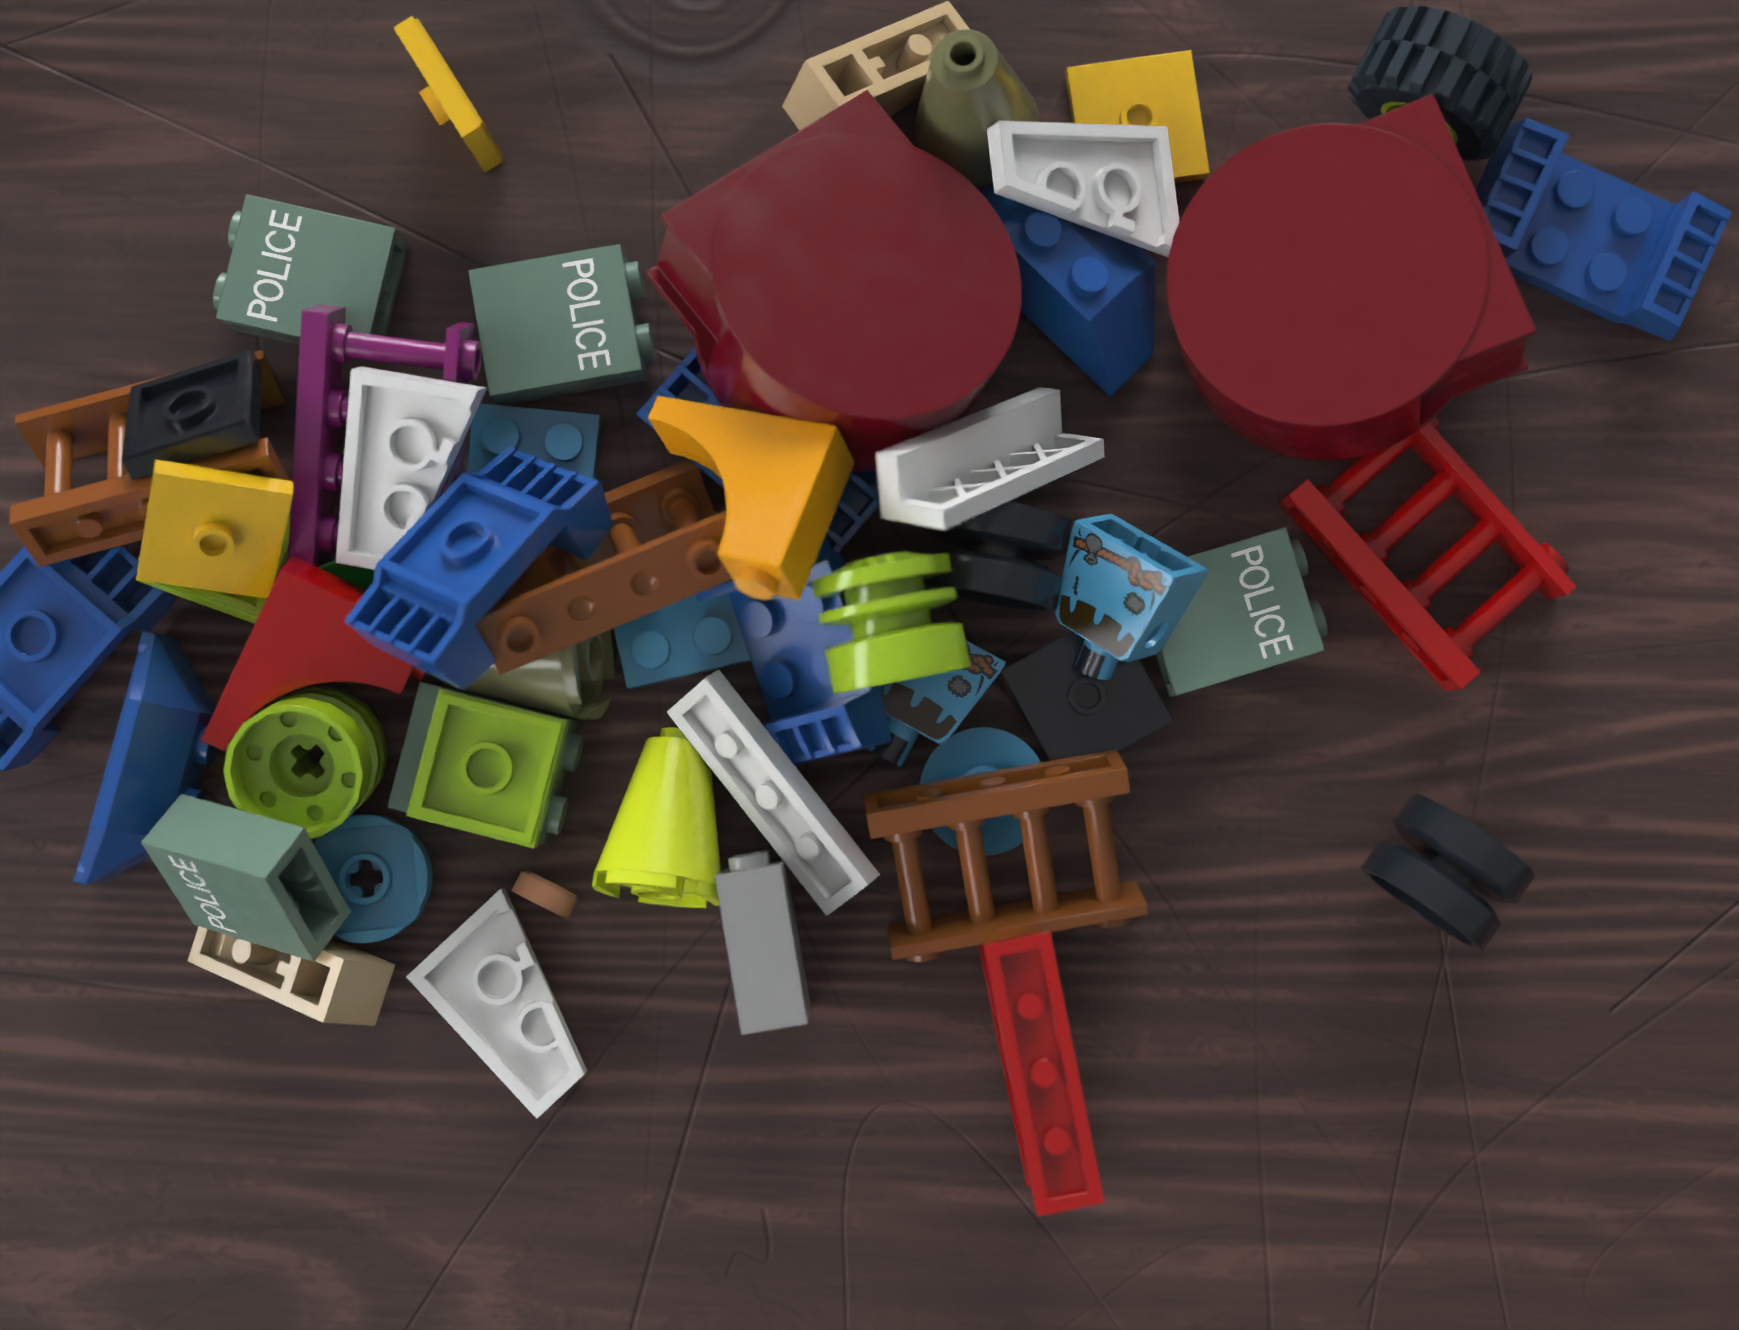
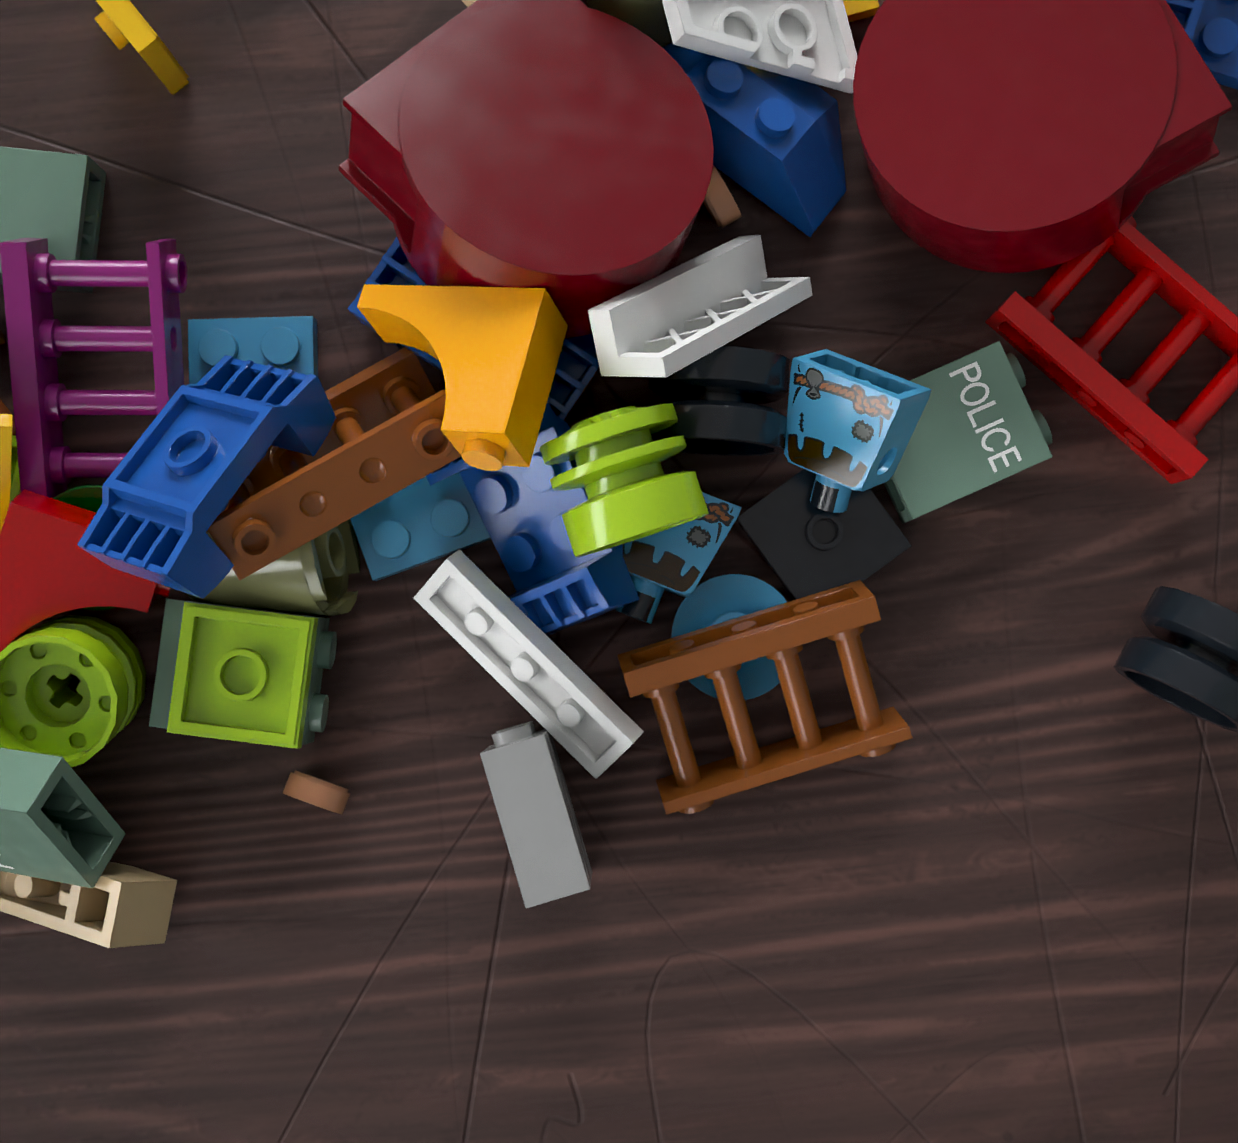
camera: 10 degrees left, 0 degrees up
(396, 456) = (113, 375): white wing -> none
(404, 868) = (175, 784): dark azure plate -> none
(502, 1005) = (288, 906): white wing -> none
(561, 324) = (263, 231): sand green brick -> none
(664, 829) = (425, 714): neon yellow cone -> none
(1024, 351) = (720, 201): none -> nougat tile
(1041, 1072) = (828, 909): red fence -> none

